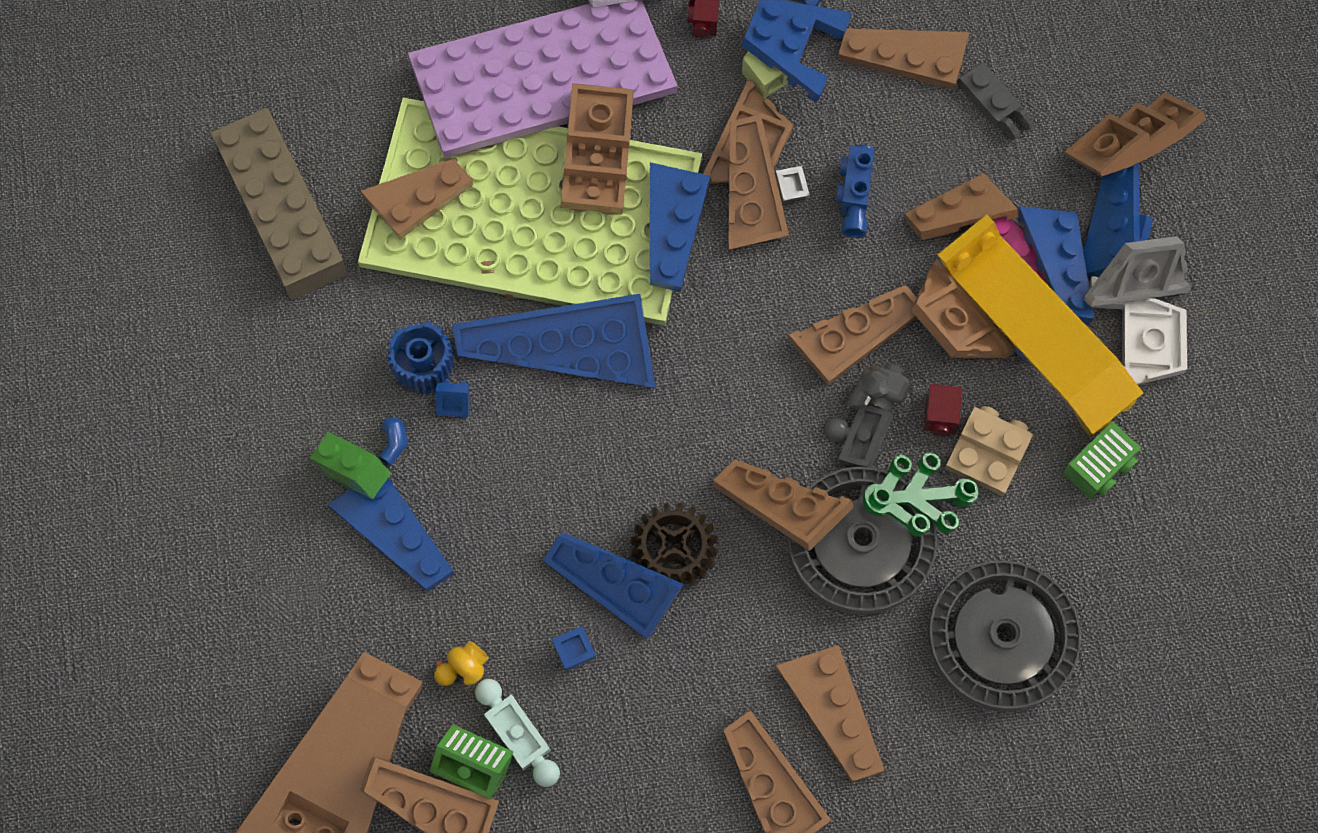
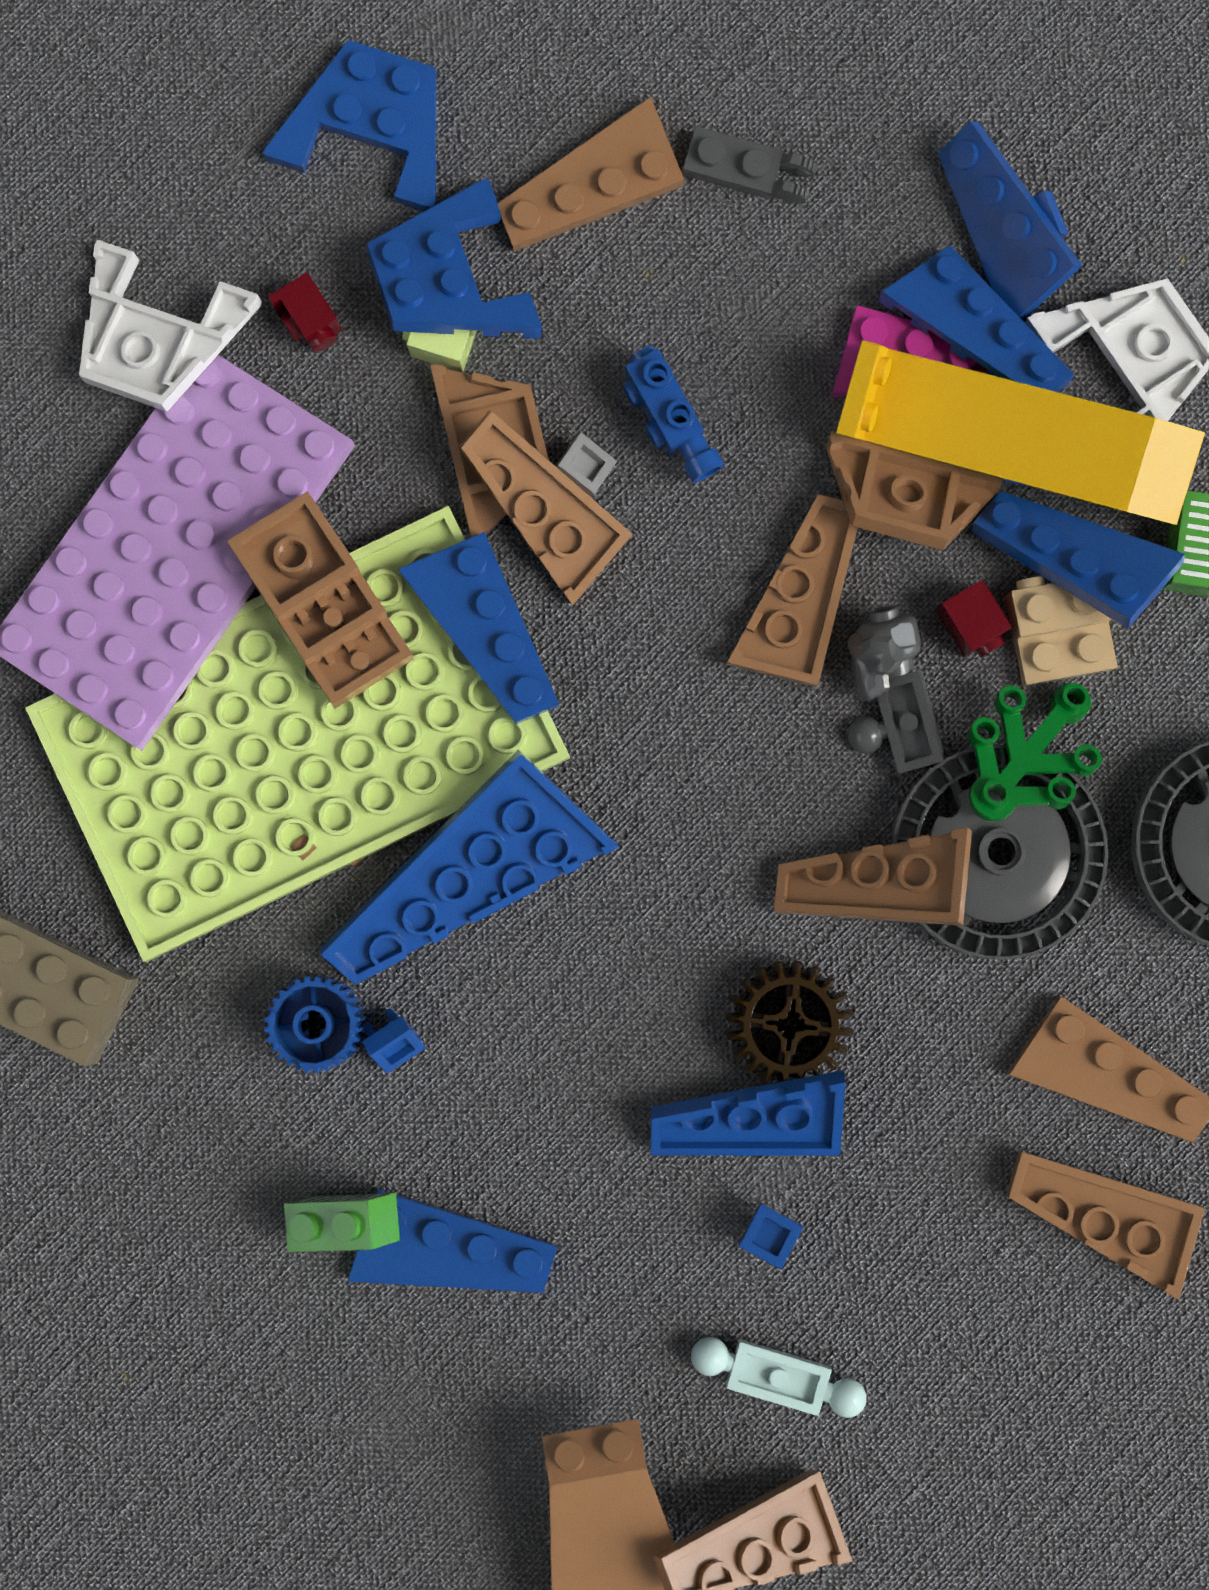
camera: 35 degrees left, 15 degrees up
(396, 439) = (363, 1139): blue arm -> none
(417, 196) = (149, 824): medium nougat wing -> none
(465, 661) = (656, 1347): yellow animal -> none
(471, 761) = (757, 1455): bright green brick -> none
(960, 208) = (813, 336): medium nougat wing -> none
(1028, 418) = (1084, 558): none -> blue wing
(1135, 135) = (953, 91): medium nougat slope -> none
(1142, 272) = (1094, 276): light grey wing -> none

